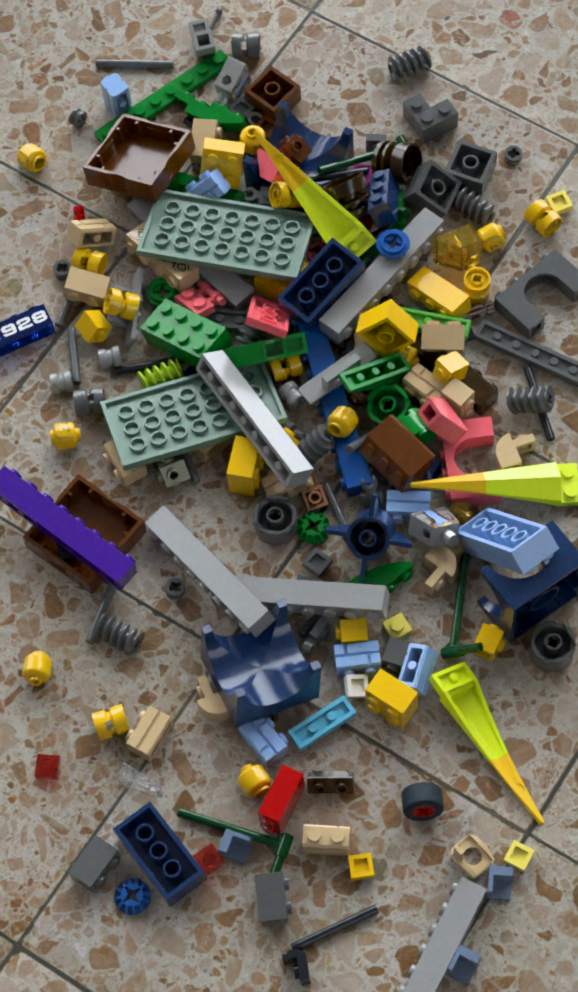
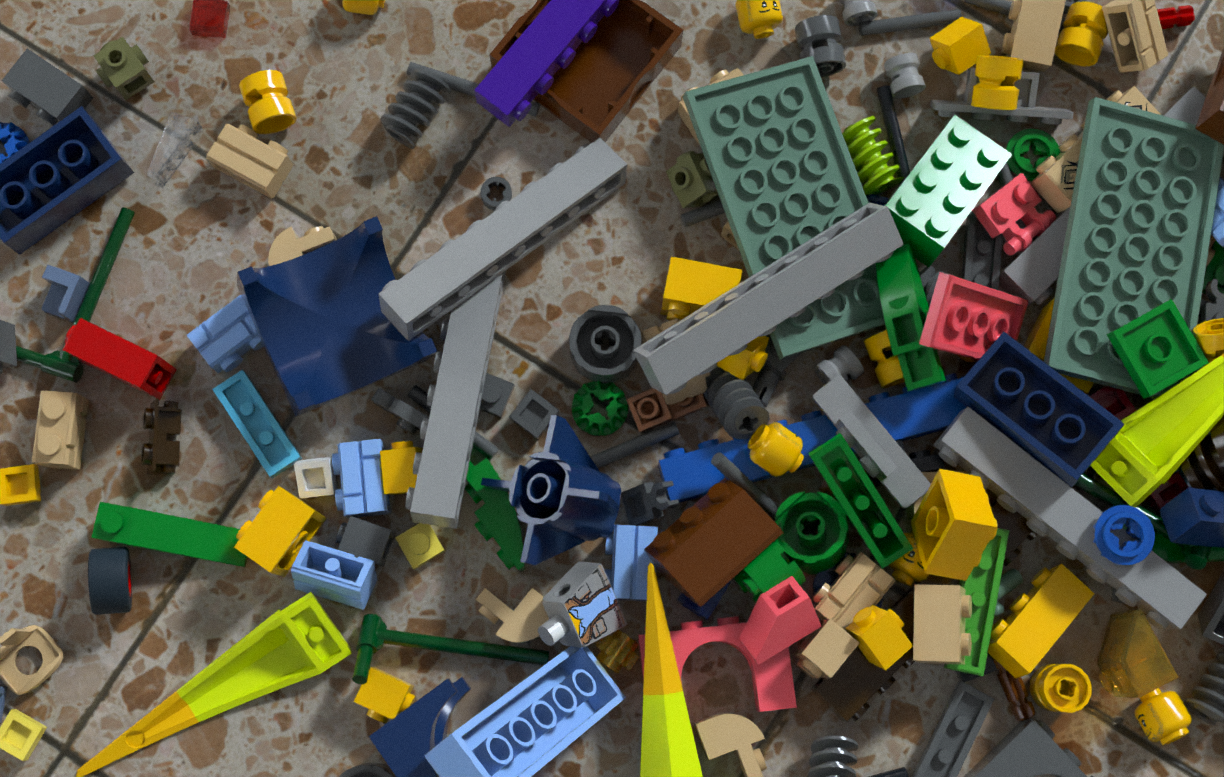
camera: 80 degrees right, 15 degrees up
(82, 813) = (123, 67): none -> olive brick
(209, 859) = (44, 251): clear red plate -> none
(254, 780) = (163, 319): yellow head -> none
(287, 223) = (1157, 348): none -> green plate
(392, 772) = (167, 534): none -> green slope

